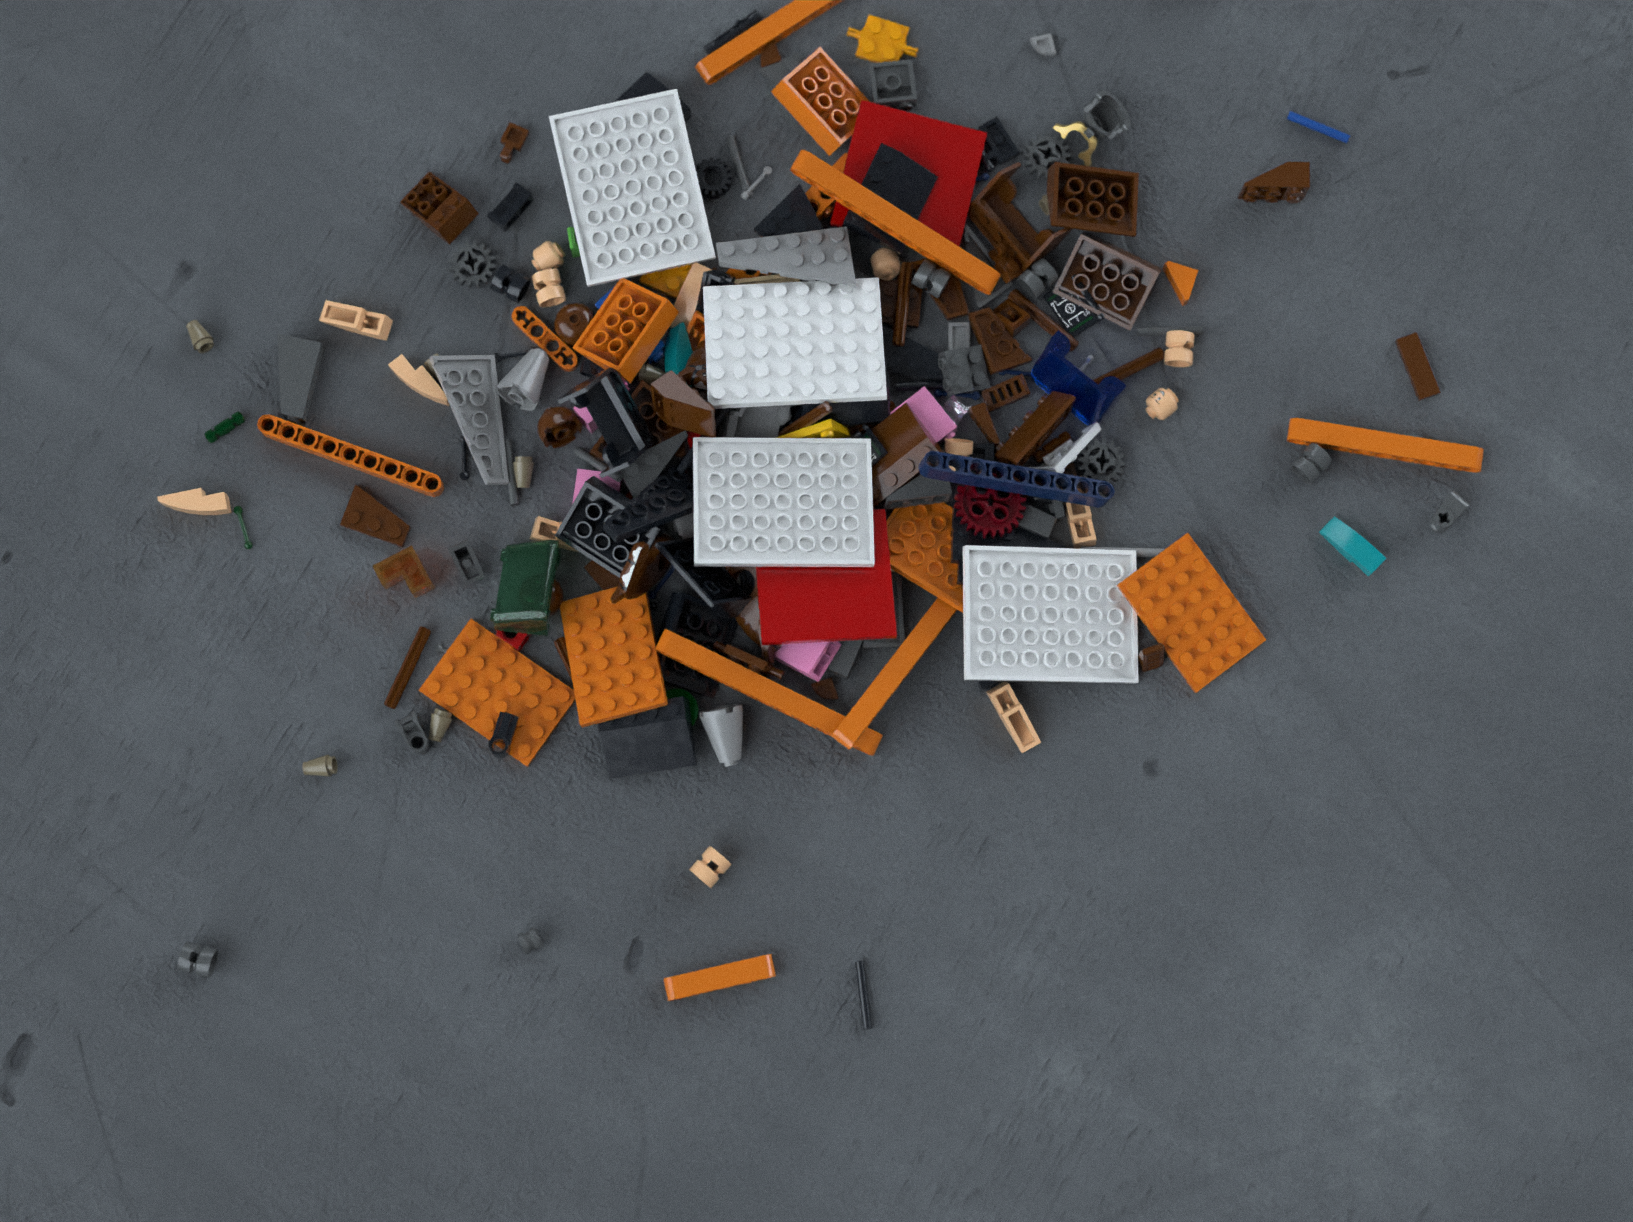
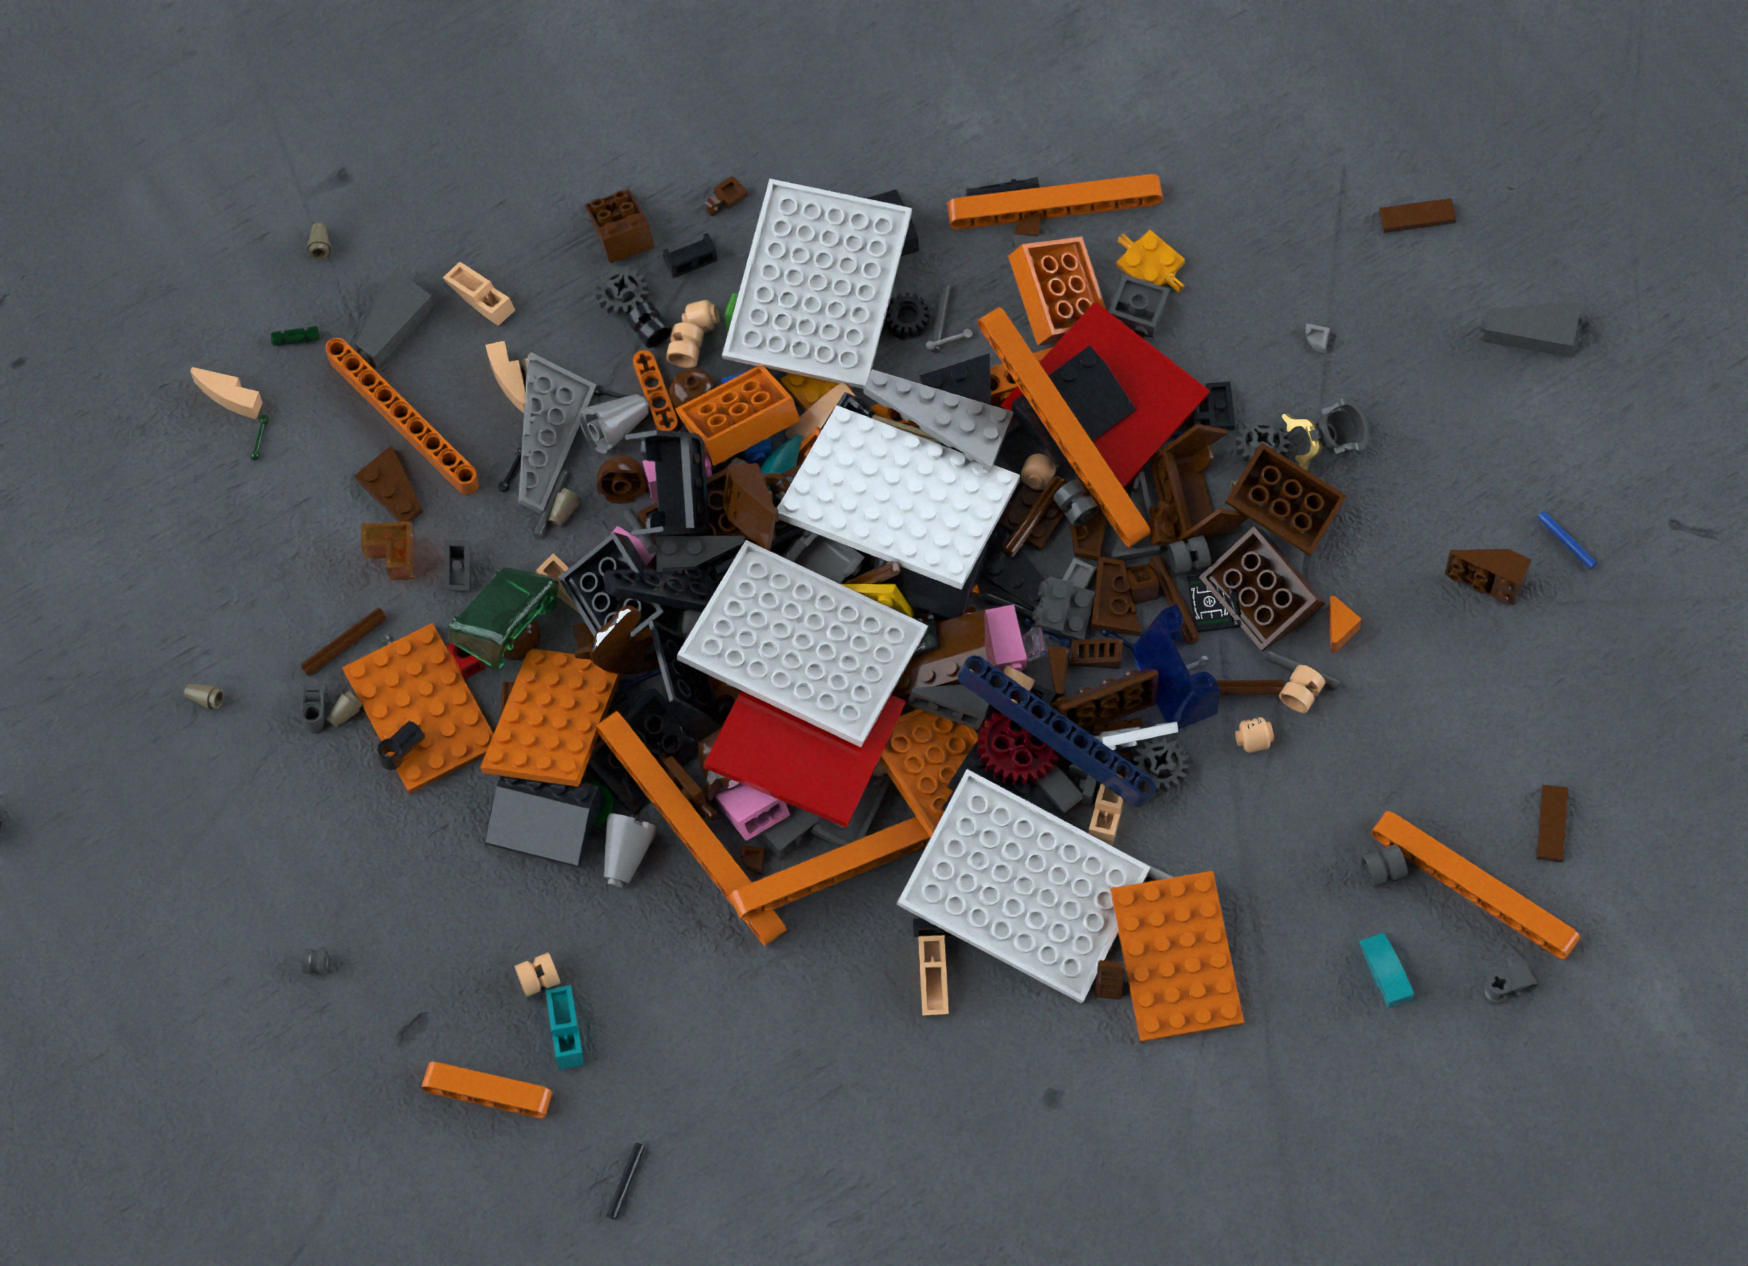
camera: 30 degrees right, 15 degrees down
(752, 897) = (564, 1027): none -> teal slope

